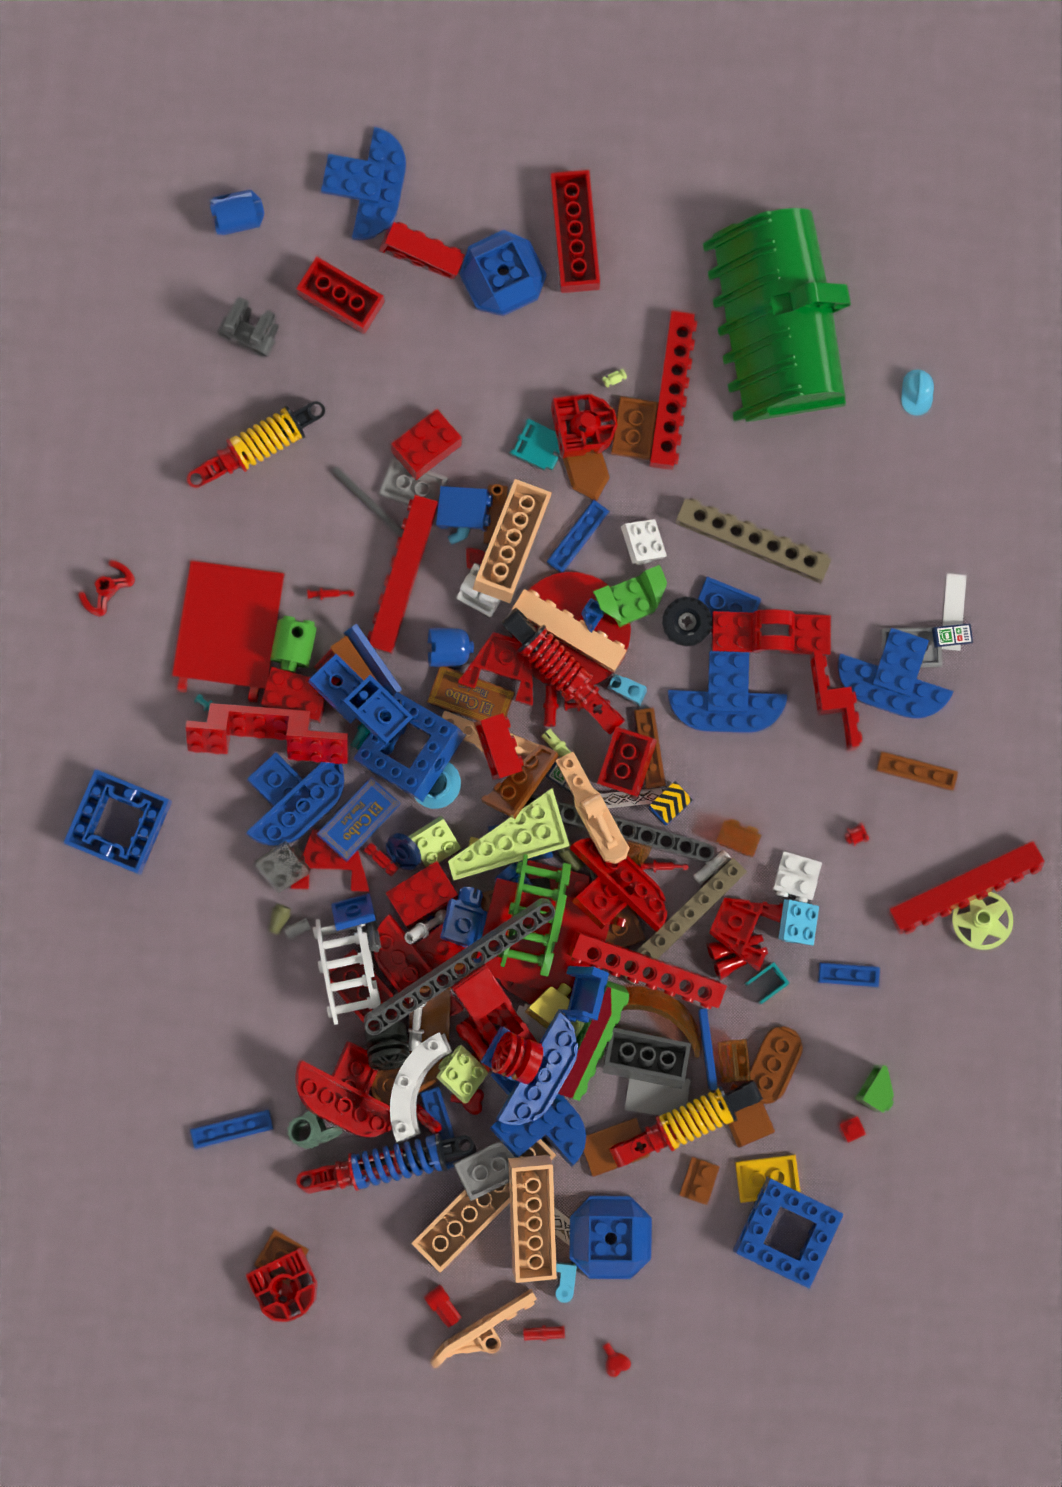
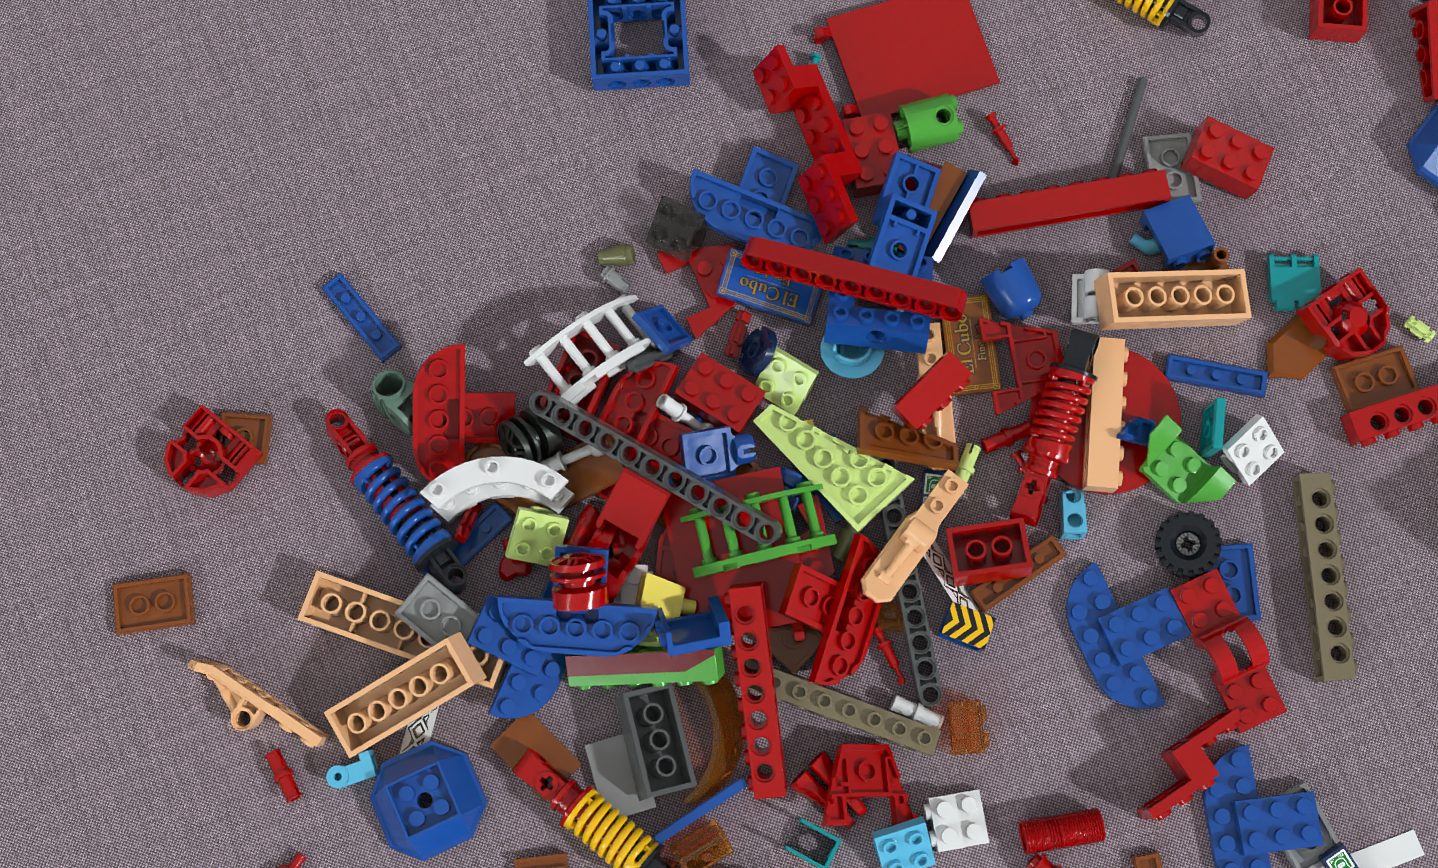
camera: 70 degrees right, 5 degrees down
(374, 1376) = (153, 604): none -> dark orange tile
(390, 759) = (854, 279): none -> red beam
(440, 1302) = (267, 637): red piece -> none
(615, 561) = (1212, 428): none -> teal tile
(838, 809) = (1071, 831): none -> red piece

